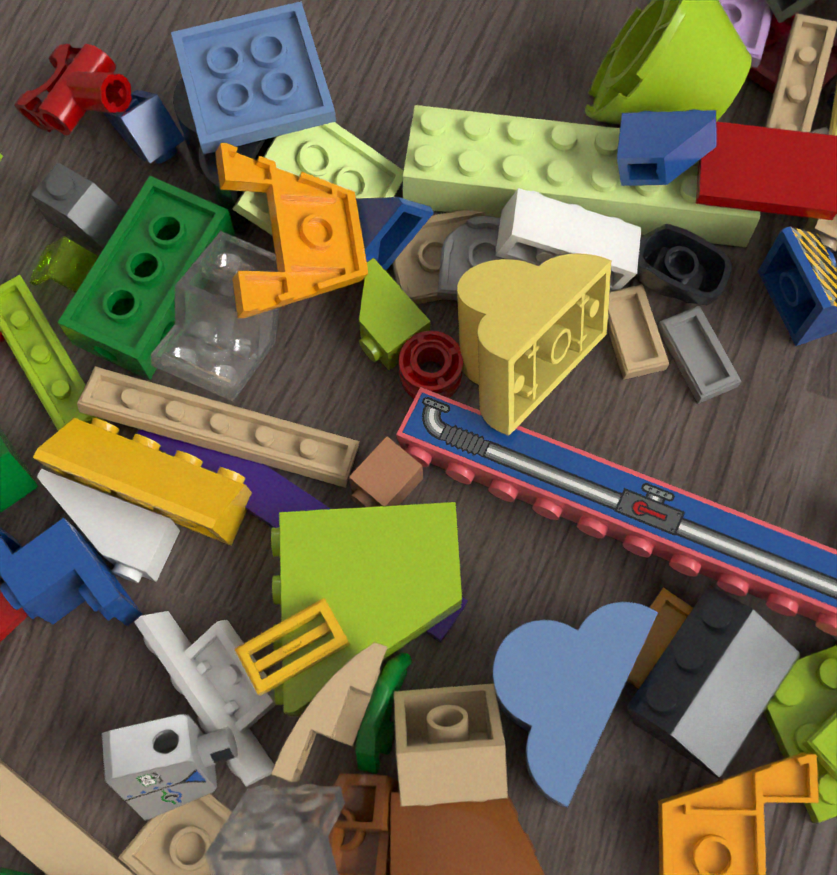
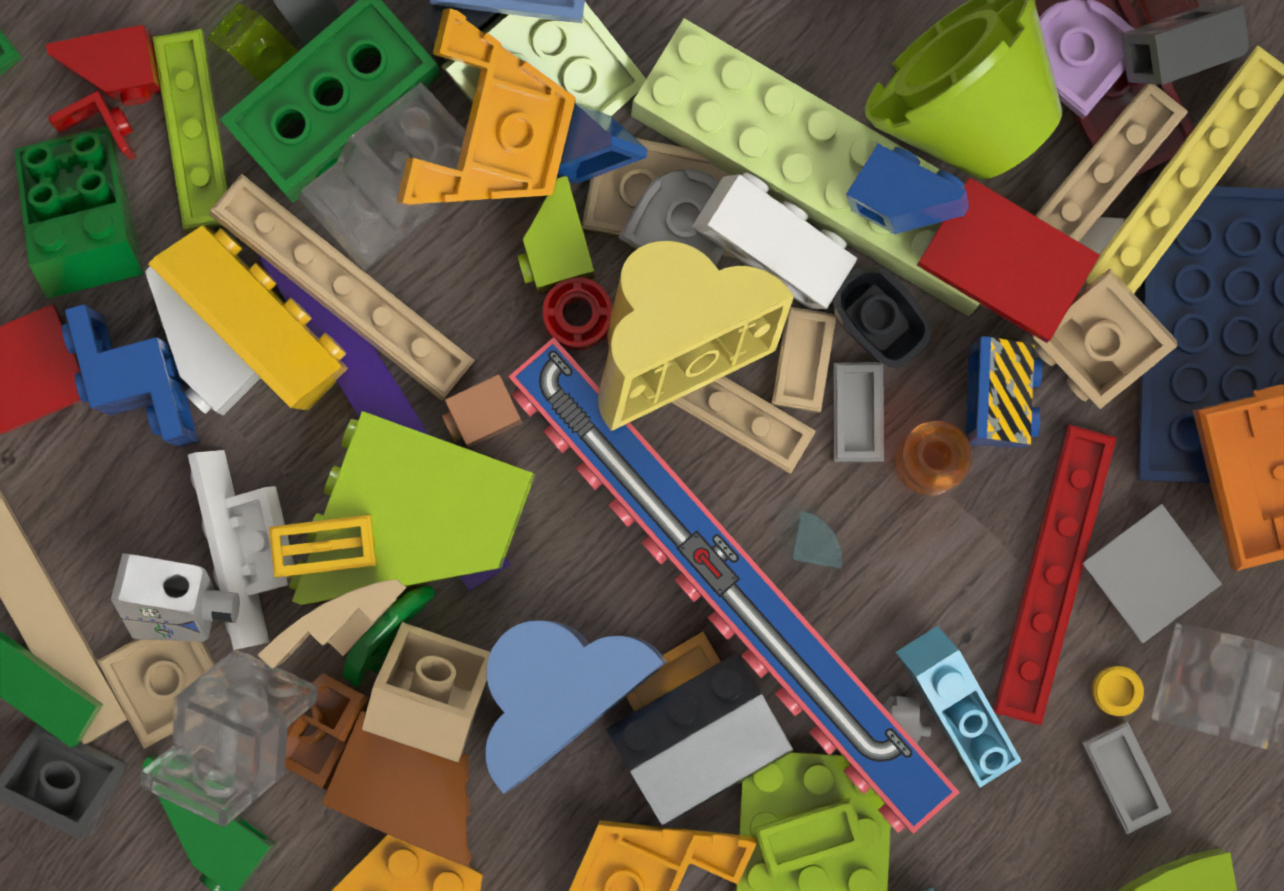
camera: 20 degrees right, 15 degrees up
(611, 398) = (749, 421): none -> tan tile
(720, 471) = (816, 542): none -> clear light blue tile
(784, 343) = (949, 442): none -> clear orange wheel

